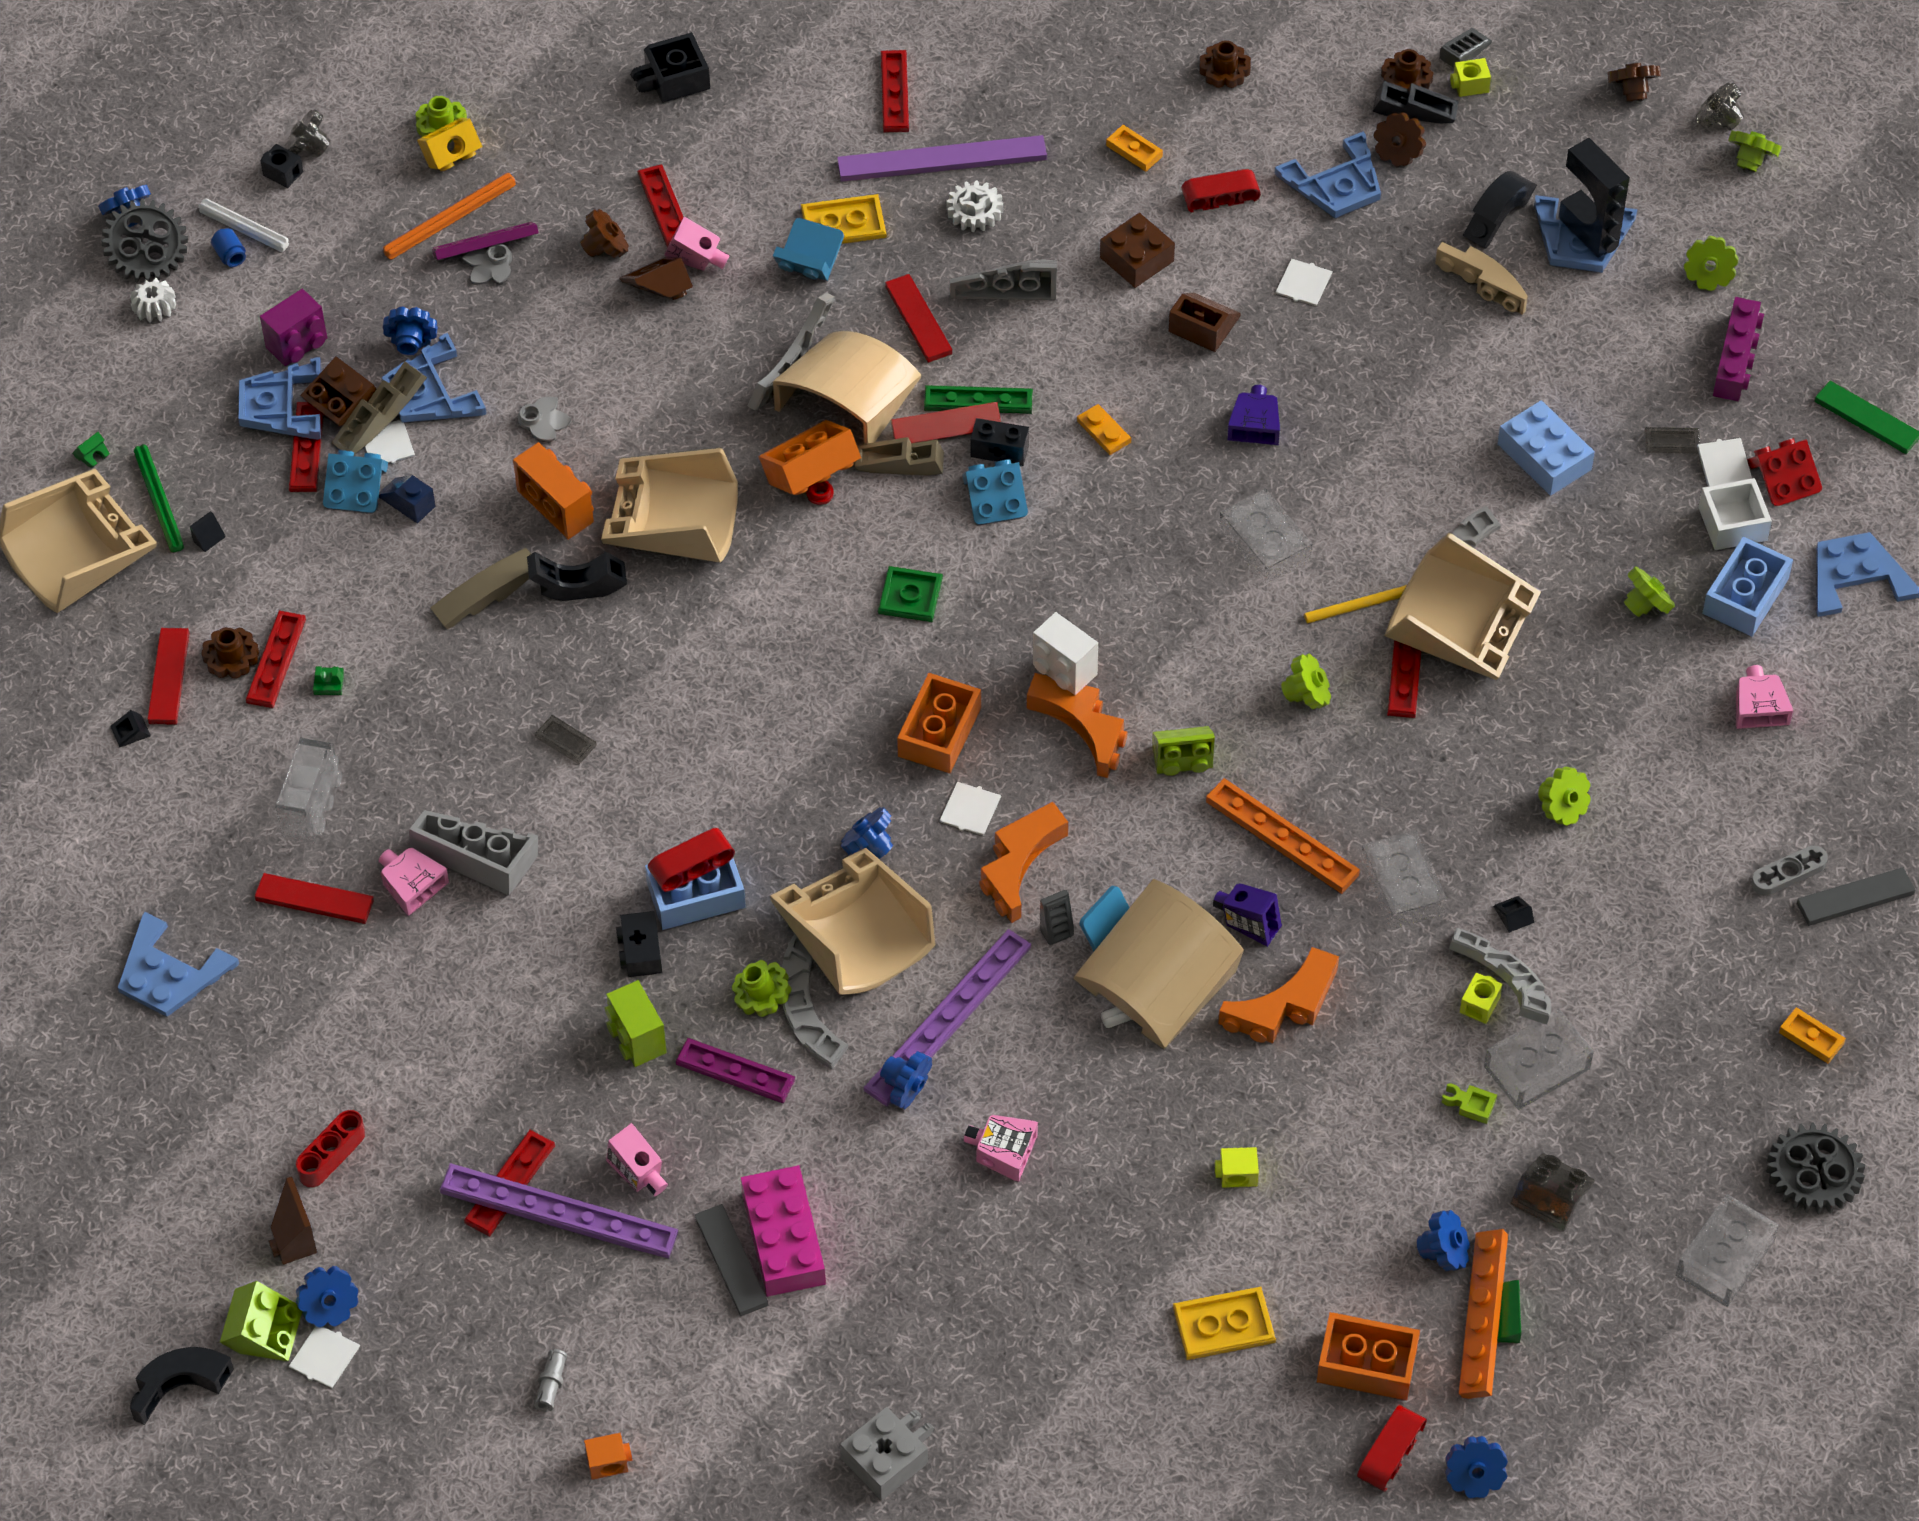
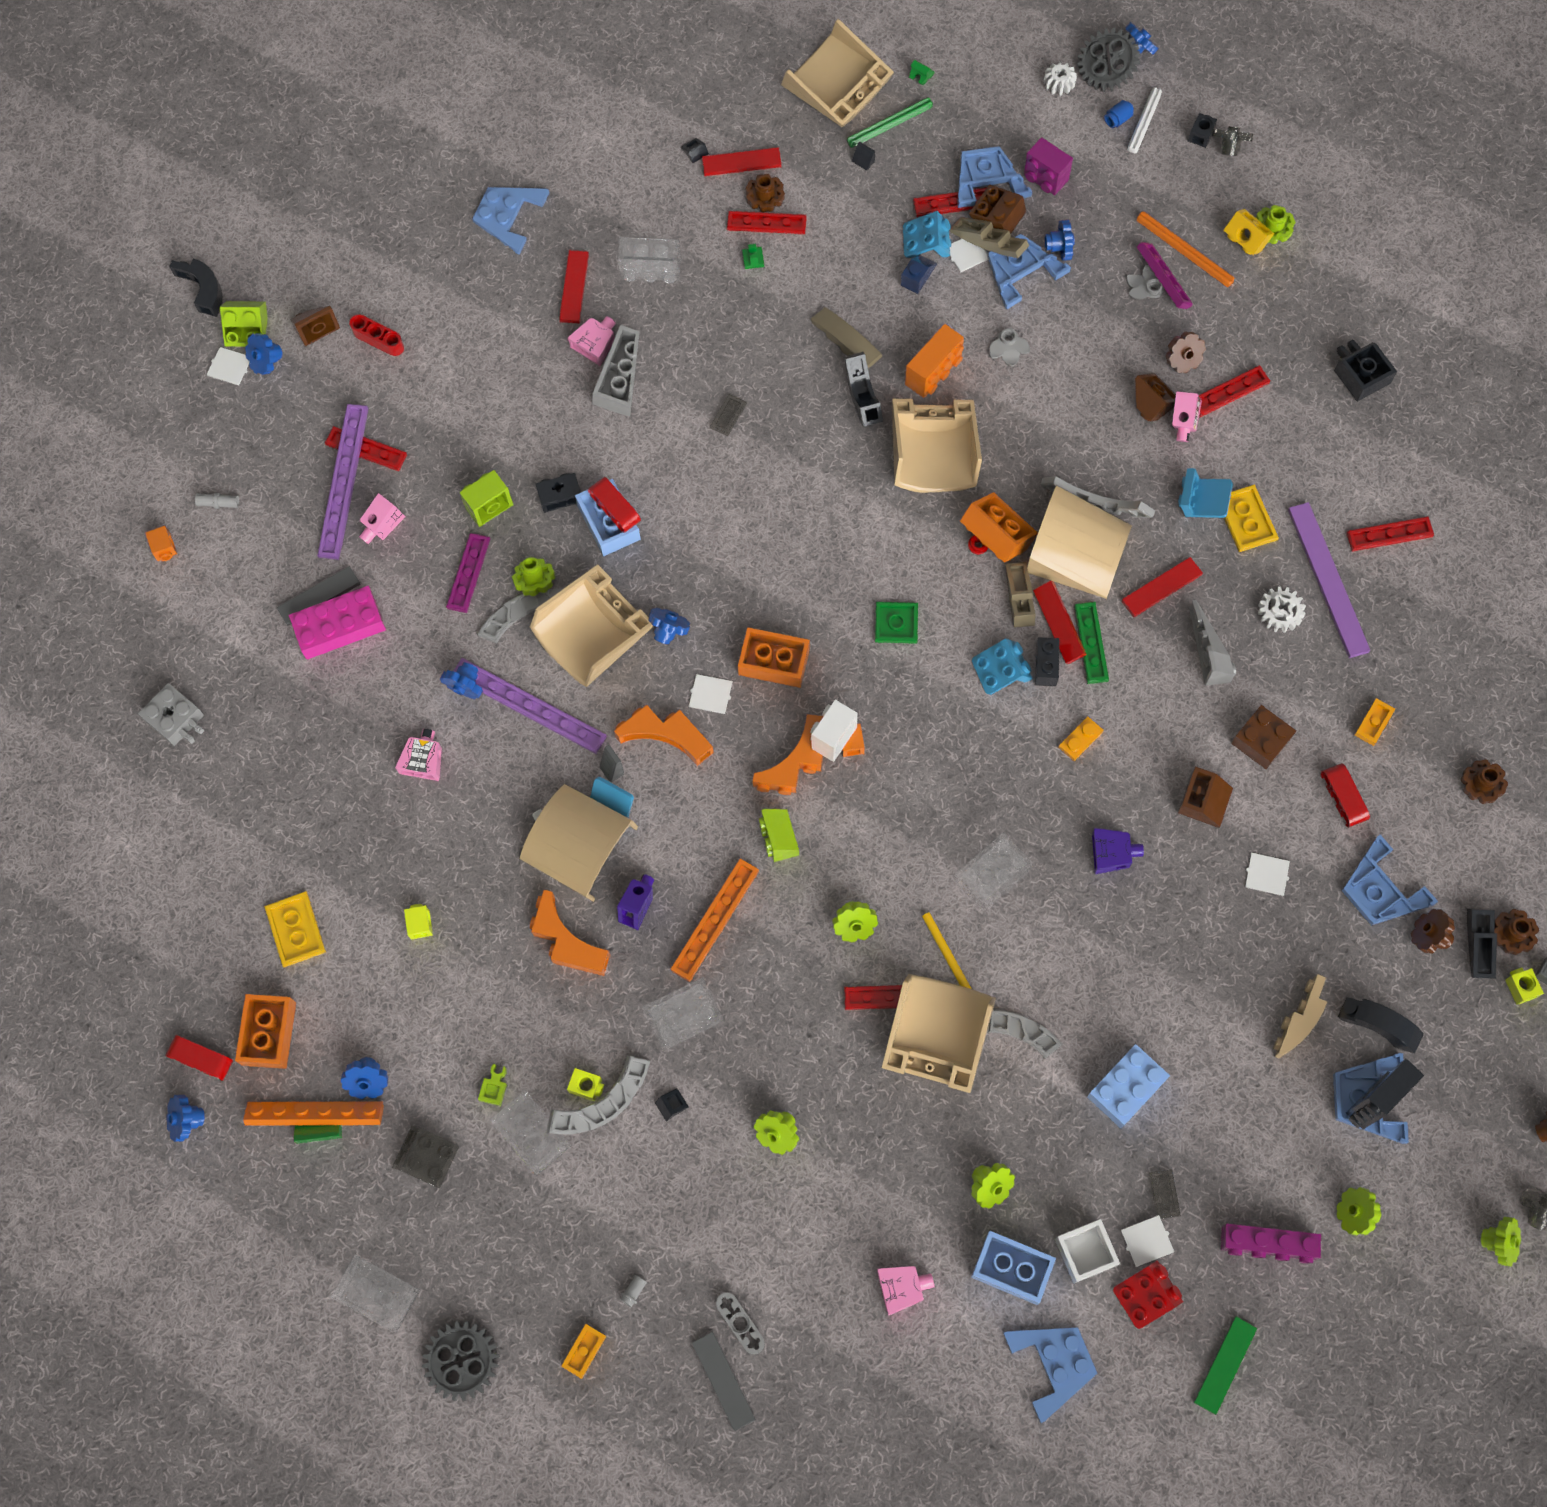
camera: 85 degrees right, 15 degrees up
(1743, 976) = (633, 1290): none -> light grey pin

